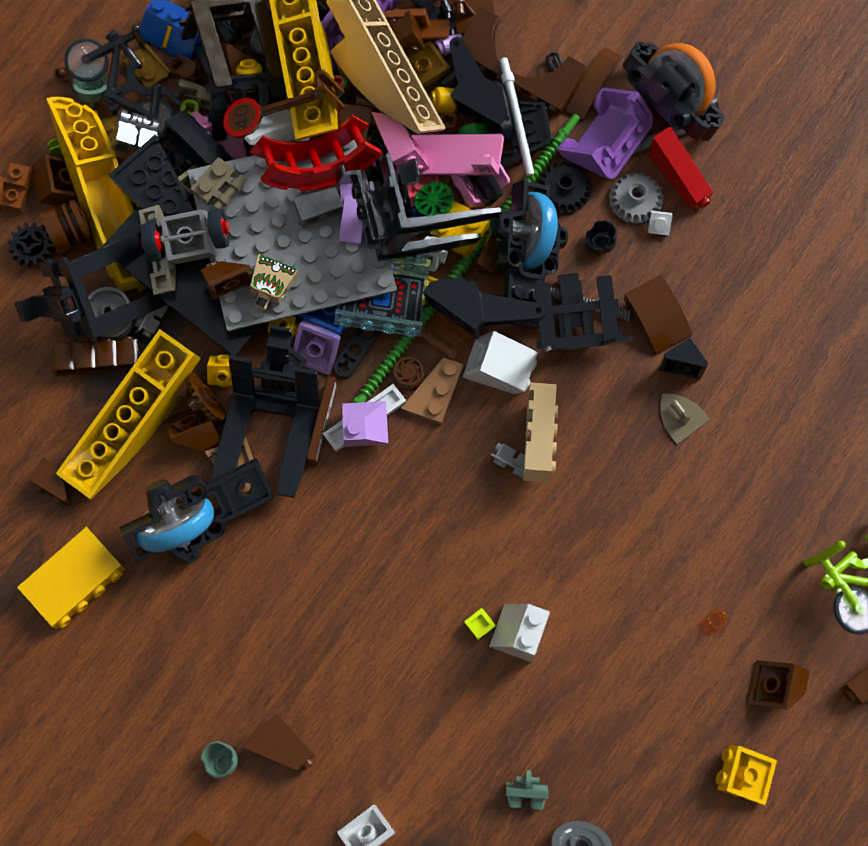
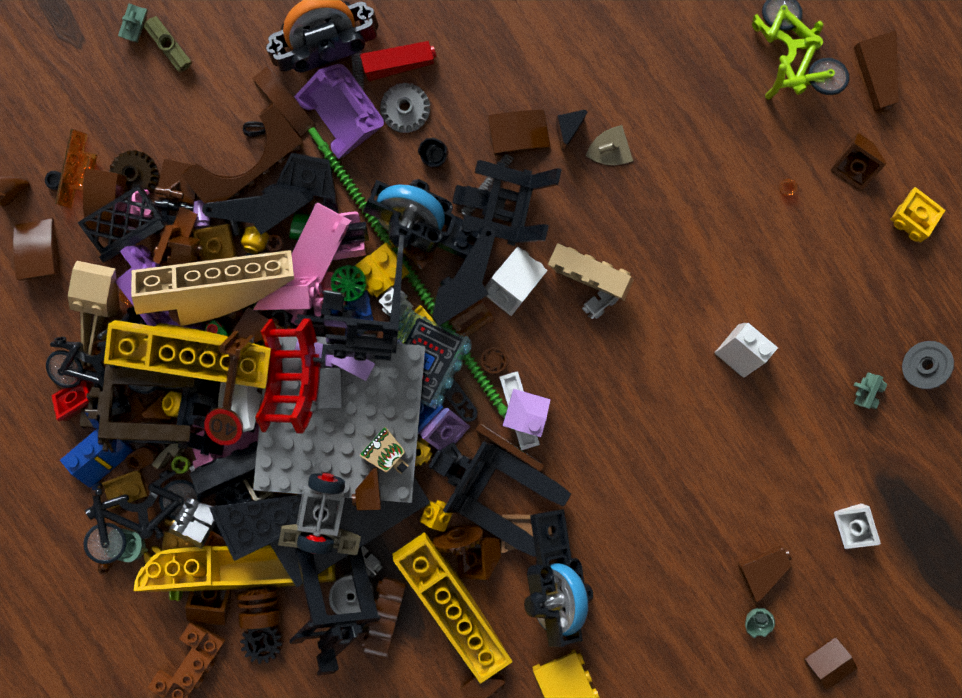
camera: 70 degrees left, 15 degrees up
(214, 180) = (274, 471): dark tan plate -> none
(435, 392) = (517, 343): medium nougat wing -> none
(479, 624) = (725, 378): neon yellow plate -> none
(508, 80) = (259, 177): white bar -> none
(567, 198) = (363, 154): black gear -> none
(660, 223) = (436, 96): white plate -> none

